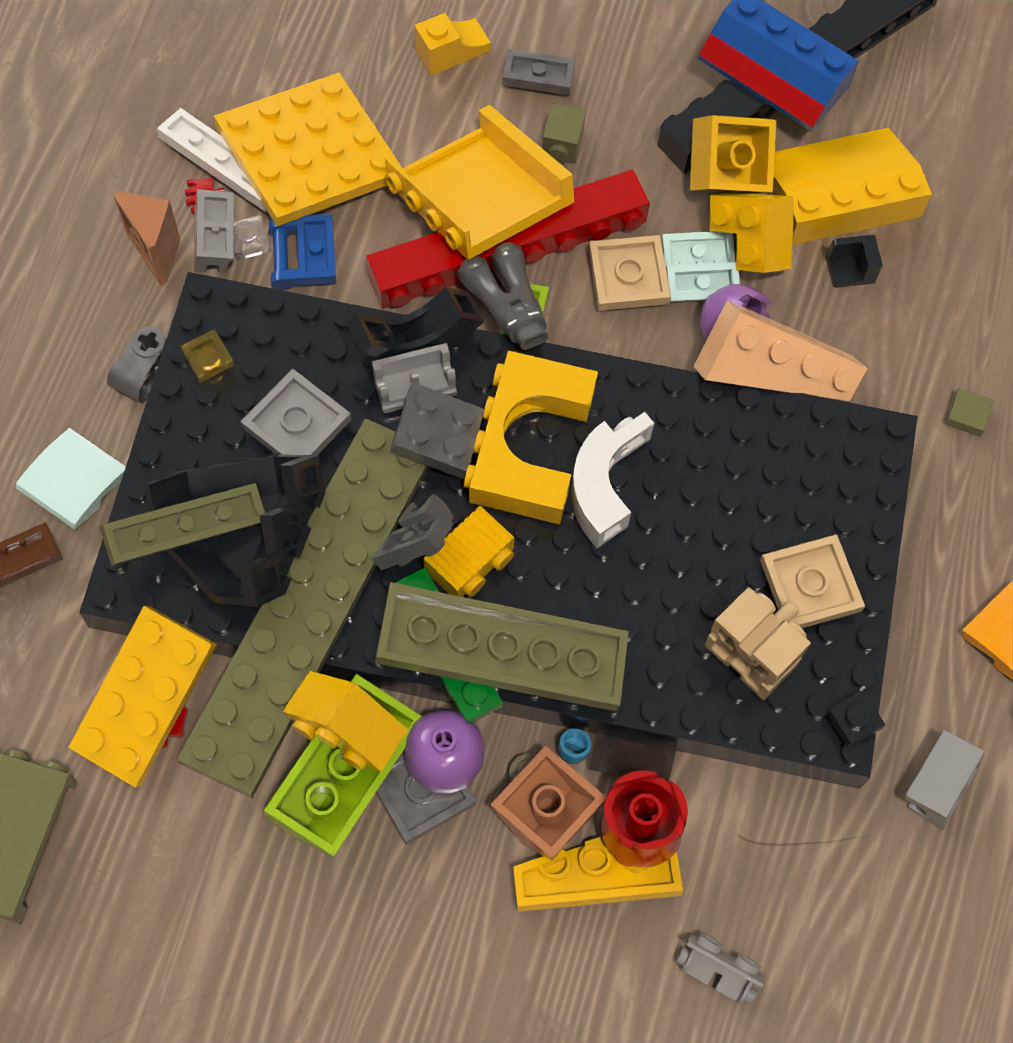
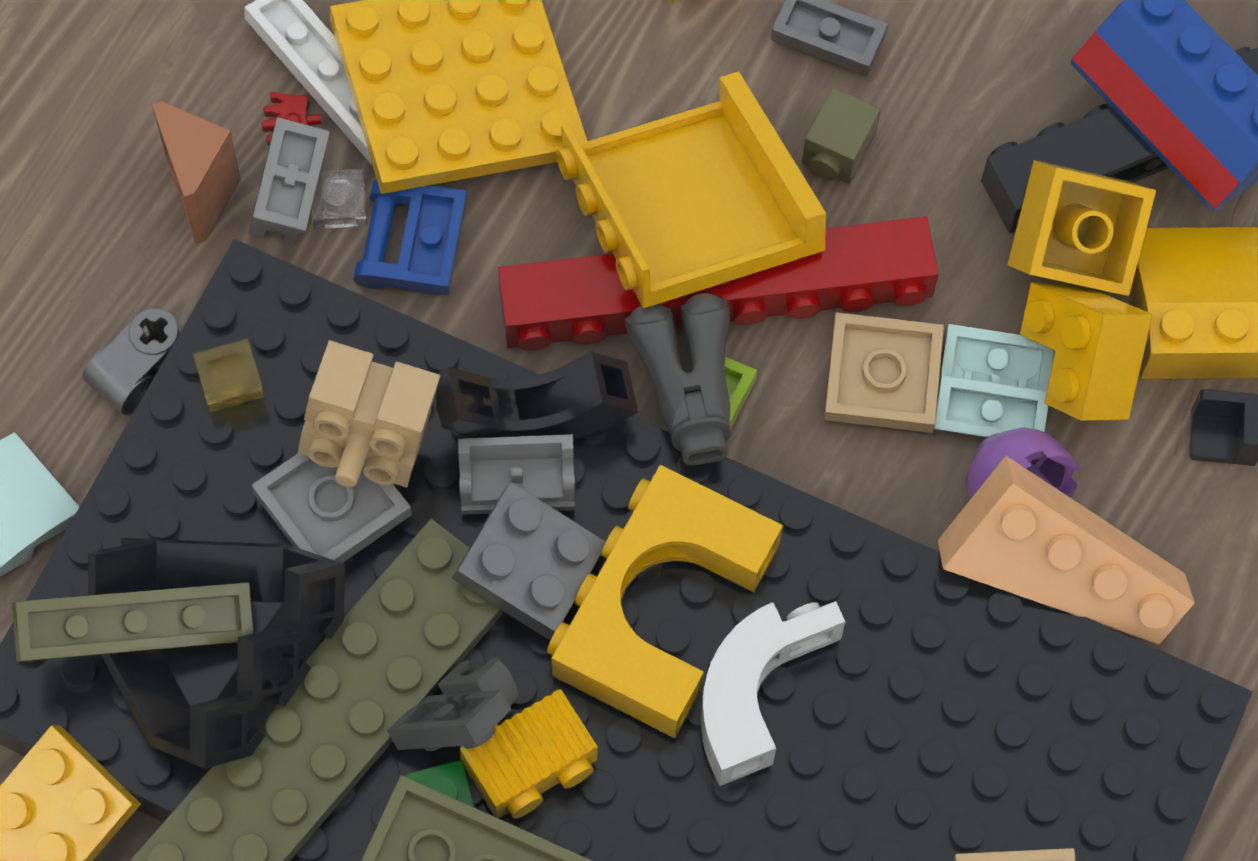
camera: 15 degrees right, 0 degrees up
(309, 356) = (366, 416): none -> tan brick

